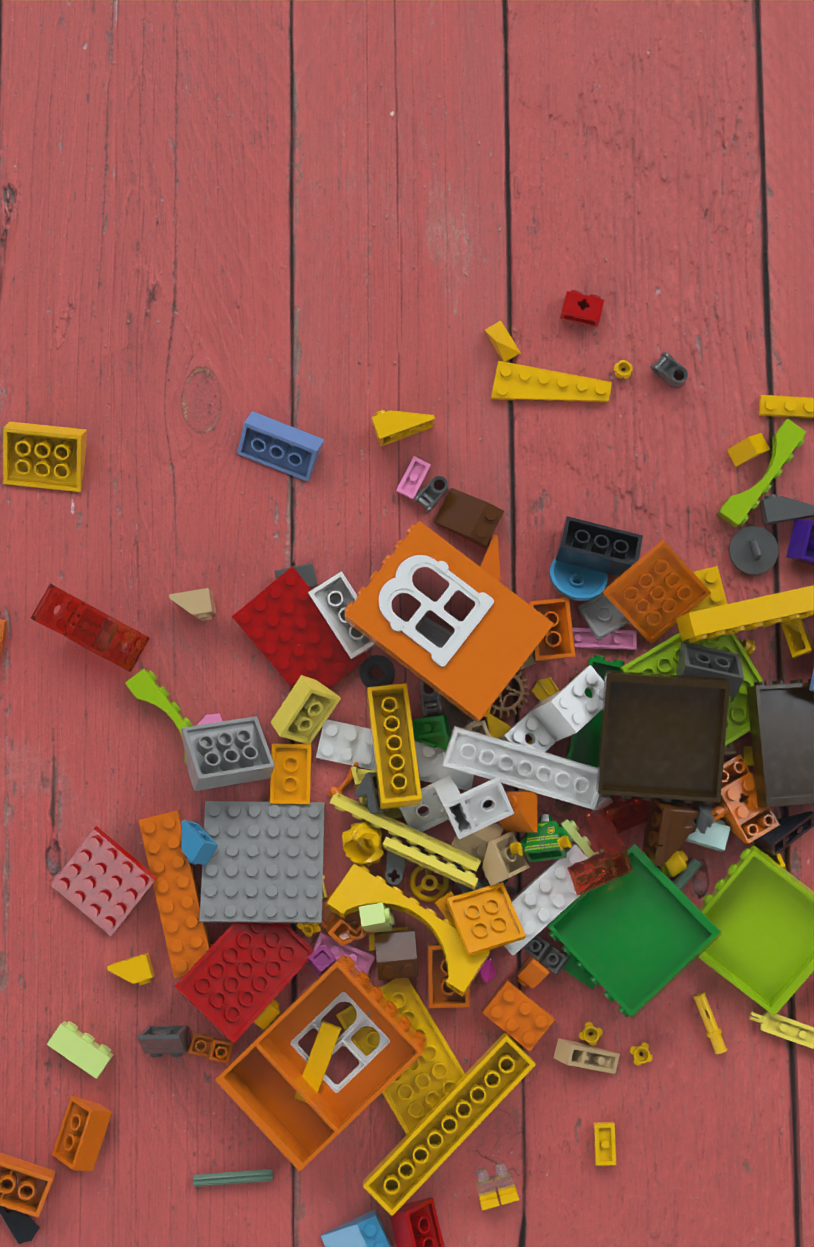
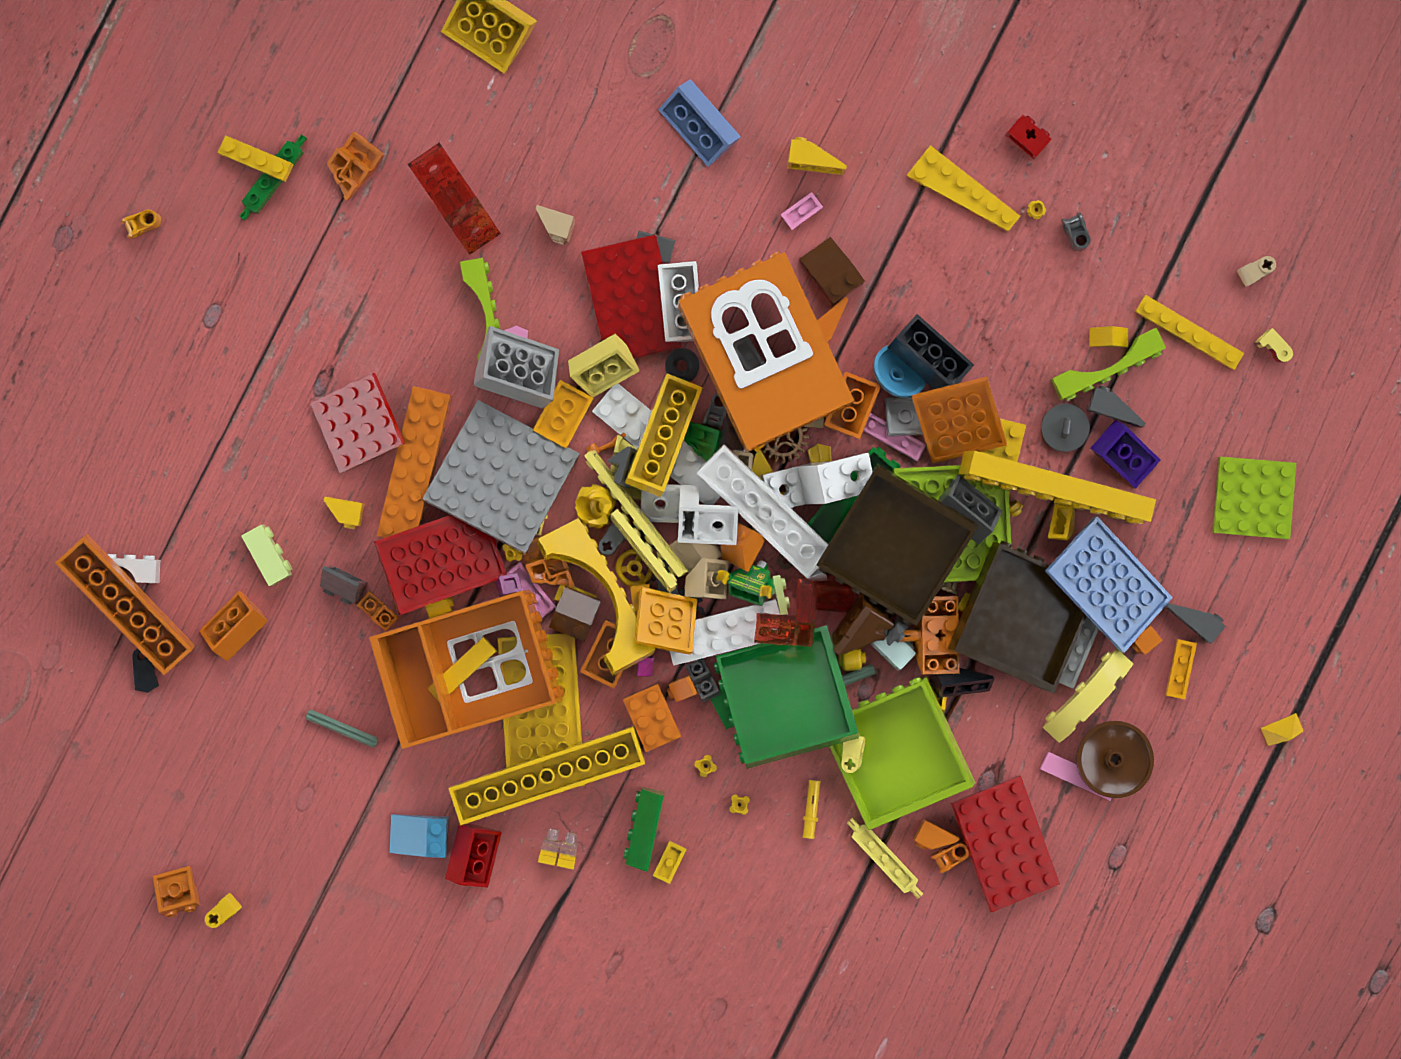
camera: 25 degrees right, 5 degrees up
(197, 843) = (453, 431): dark azure slope -> none
(376, 918) = (574, 573): yellowish green slope -> none
(431, 494) = (809, 233): dark grey piece -> none
(502, 341) = (943, 129): yellow slope -> none
(566, 1125) = (644, 829): none -> green slope
(586, 1056) = (692, 782): tan slope -> none
(723, 949) = (852, 750): none -> light yellow piece

